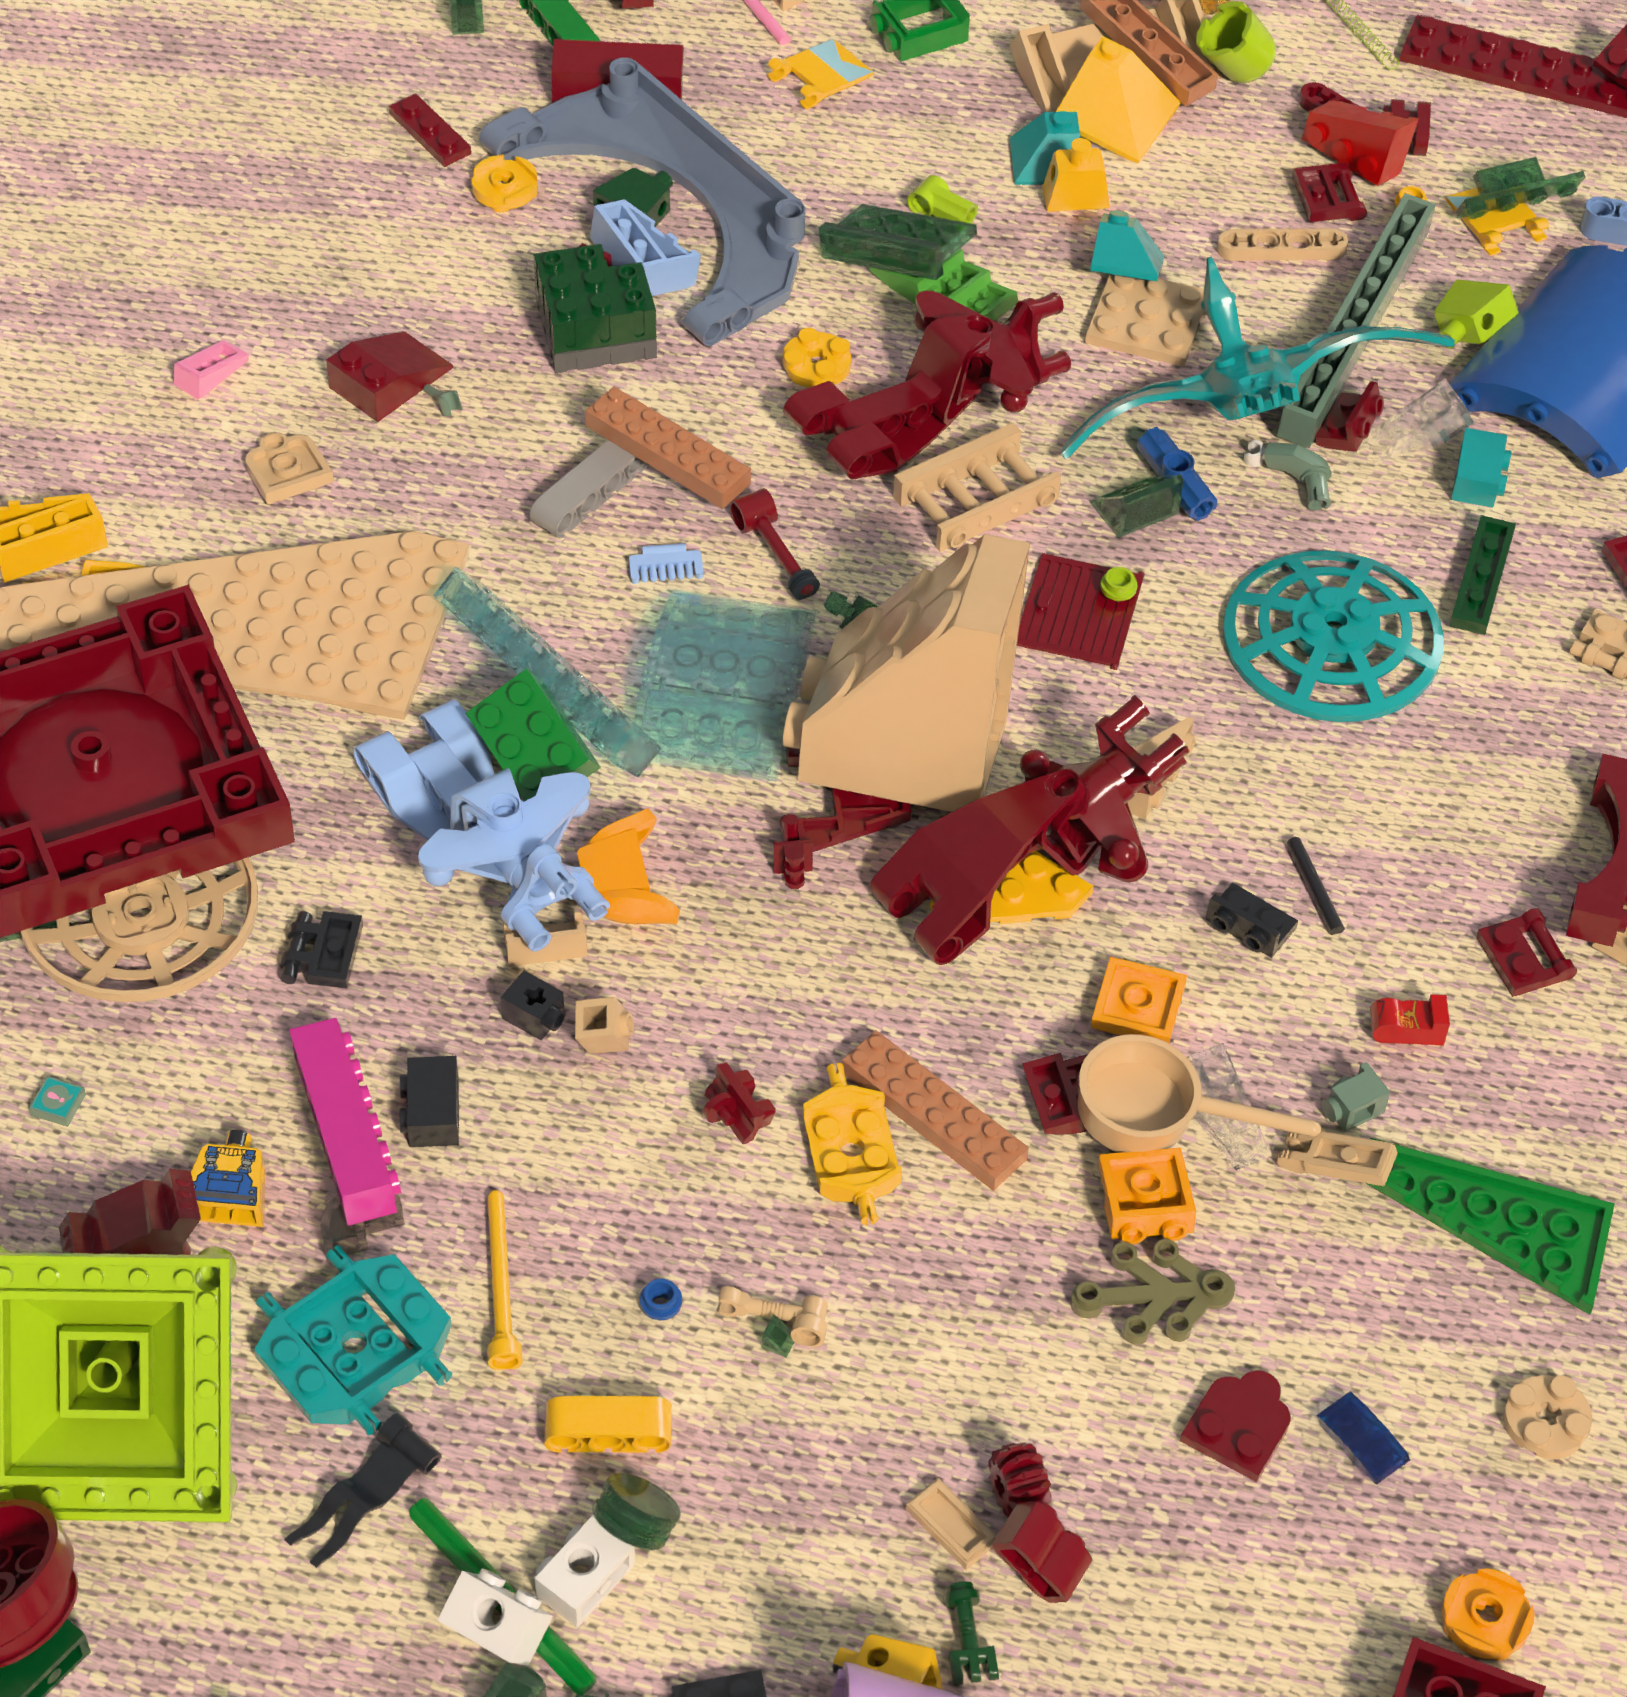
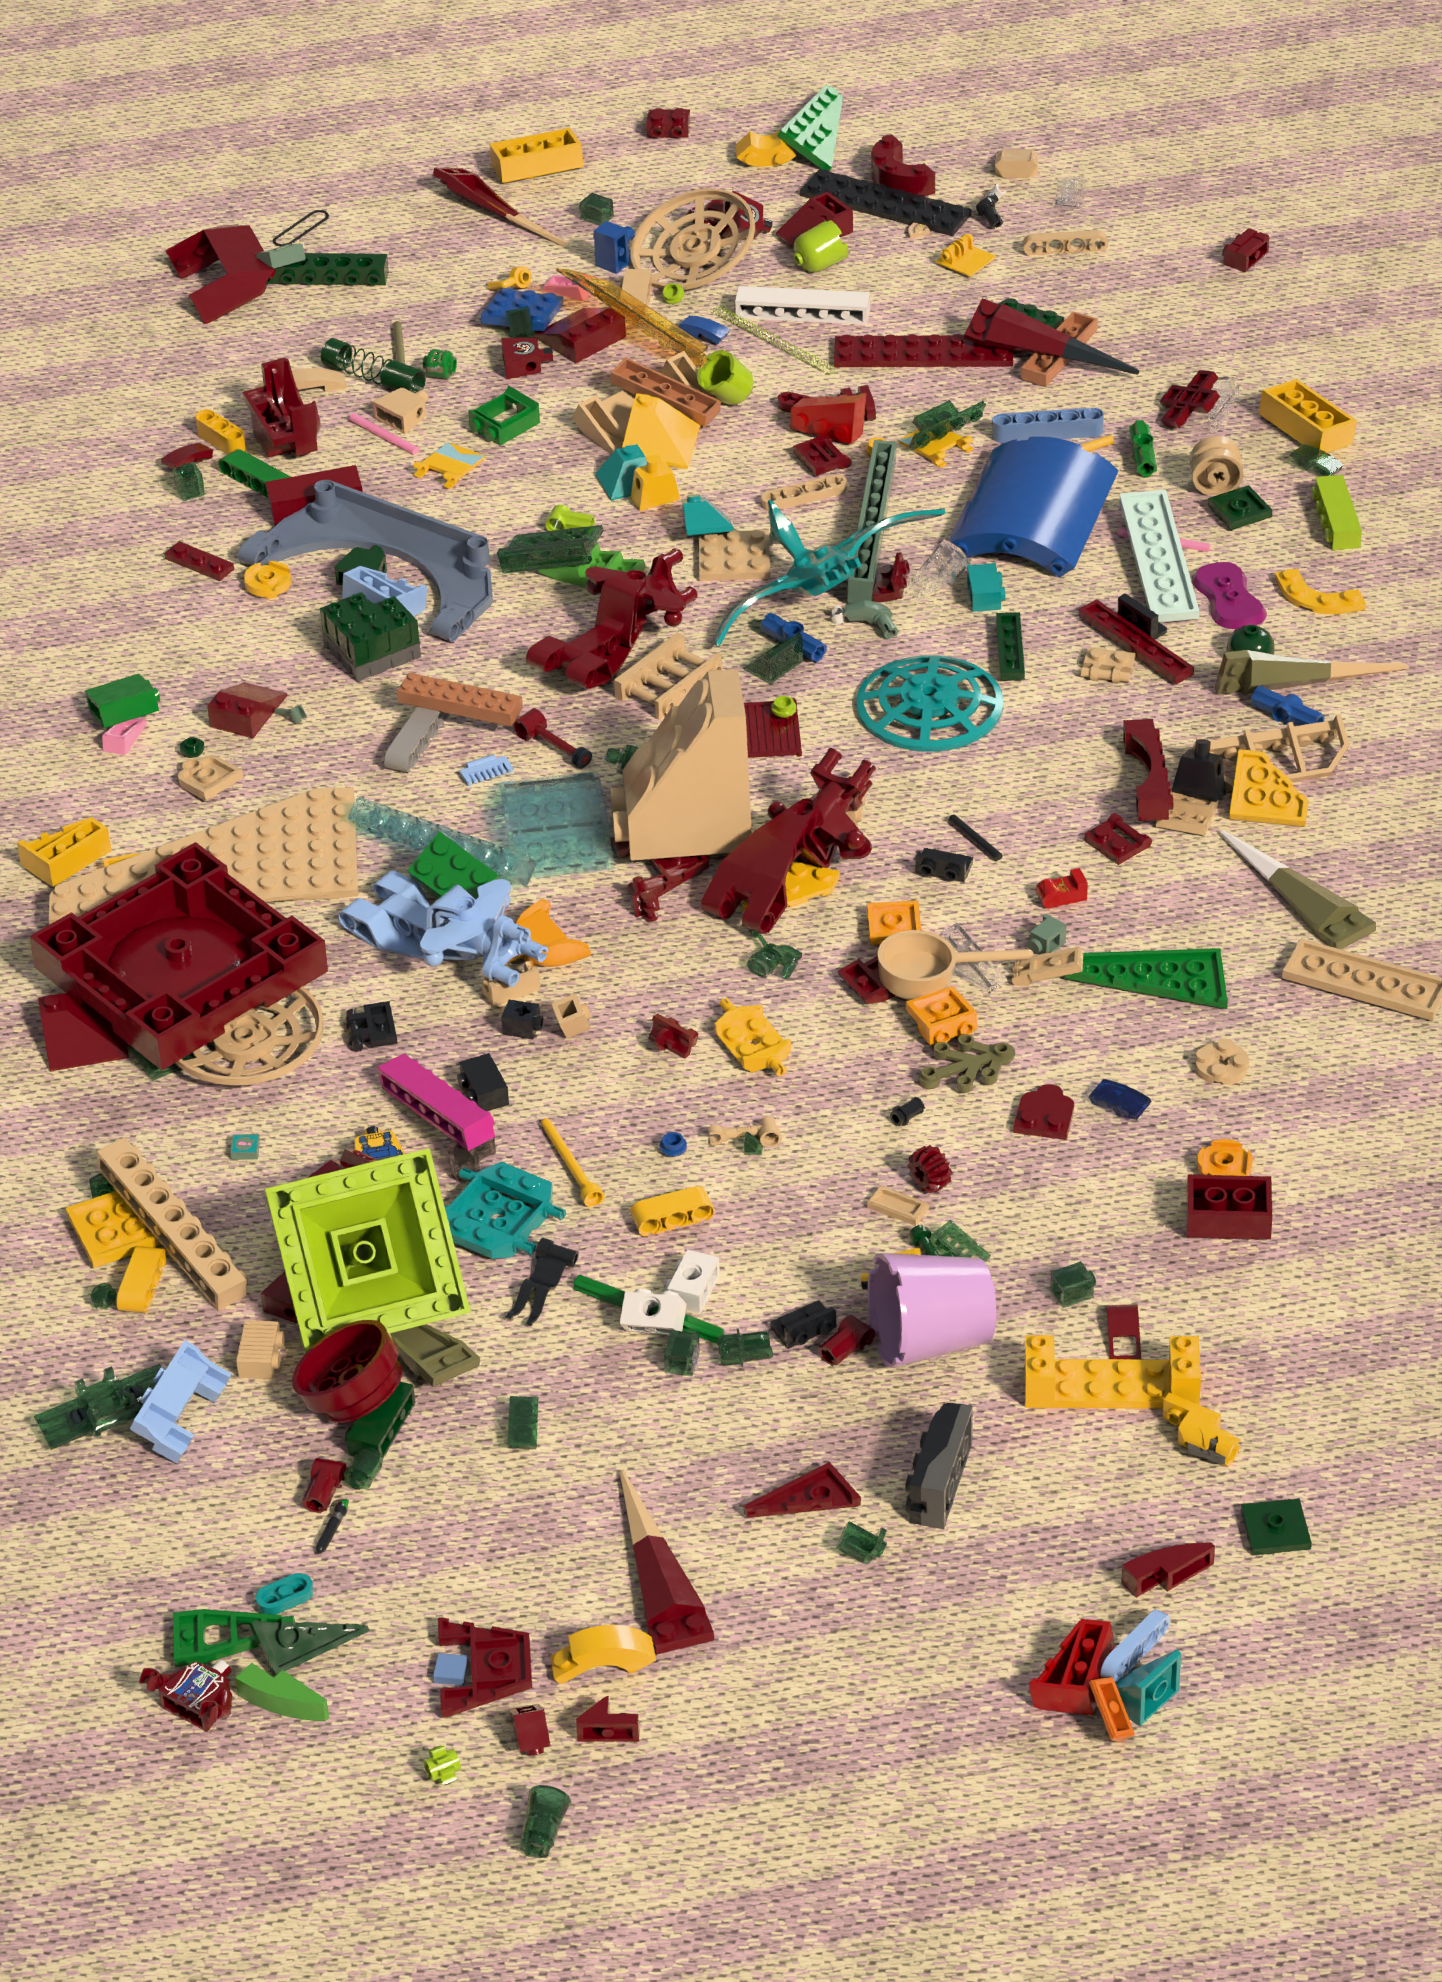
camera: 15 degrees left, 10 degrees down
(144, 1580) = (434, 1354): none -> olive plate
(226, 317) = (122, 700): none -> green brick
(288, 414) = (192, 747): none -> dark green plate
(636, 1511) = (711, 1242): clear green head -> none
(809, 344) = (537, 625): yellow plate -> none
(929, 1008) = (767, 959): none -> clear green piece
(936, 1110) = (797, 1009): nougat piece -> none
(992, 1632) = (952, 1231): none -> clear green slope
(1020, 1356) = (902, 1114): none -> black pin
(1042, 1551) = (958, 1197): dark red brick -> none
(1474, 310) = (946, 494): lime torso -> none

